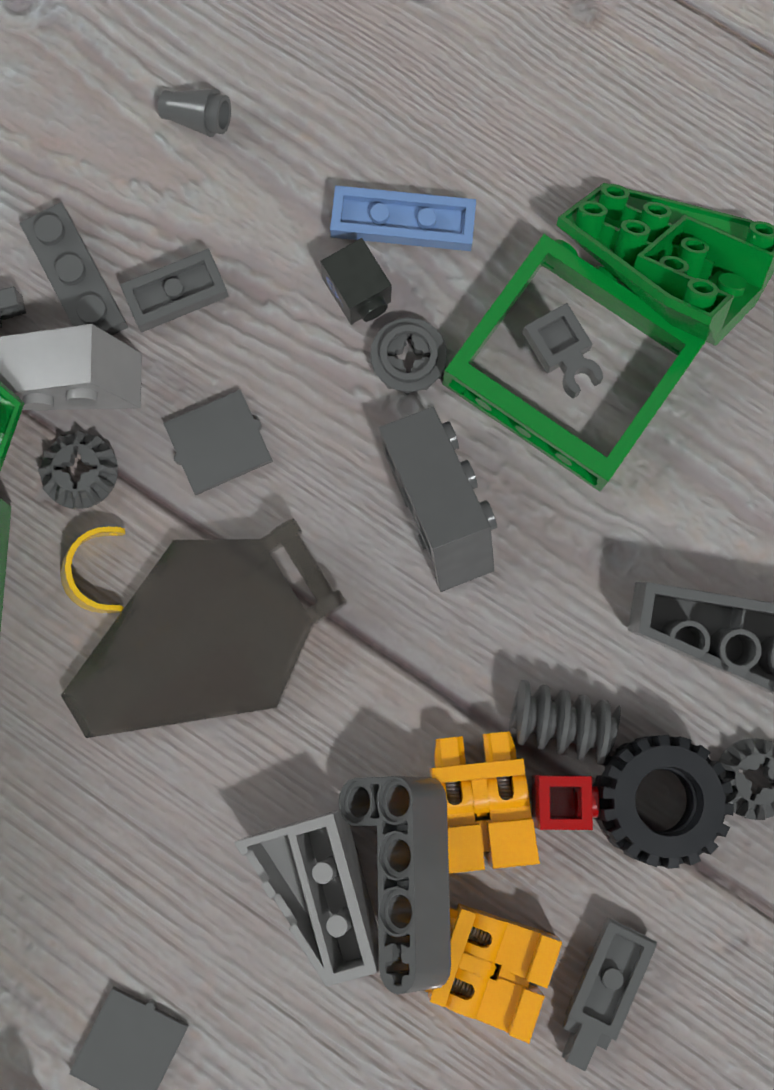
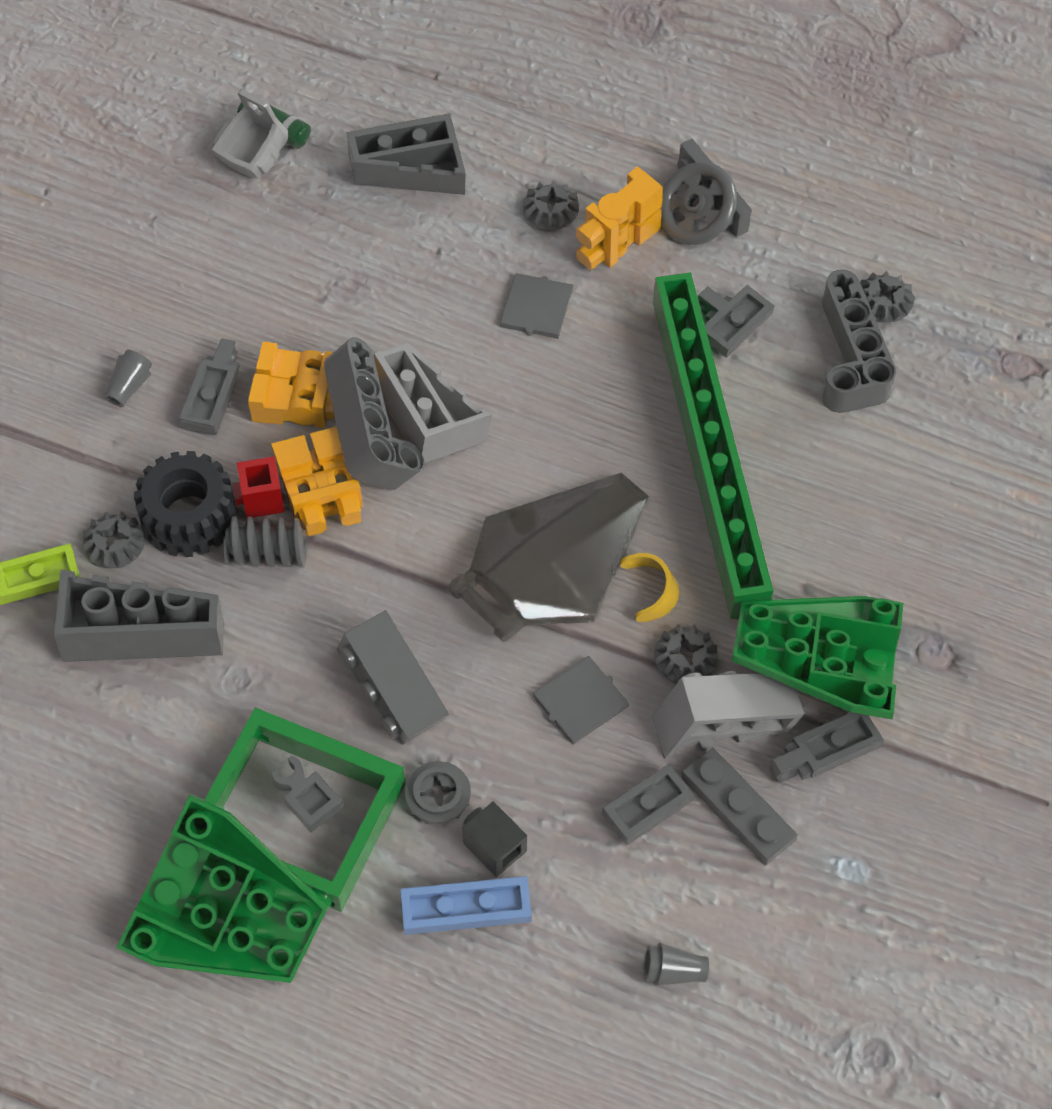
camera: 170 degrees right, 20 degrees down
(720, 1036) = (128, 375): none -> dark grey cone

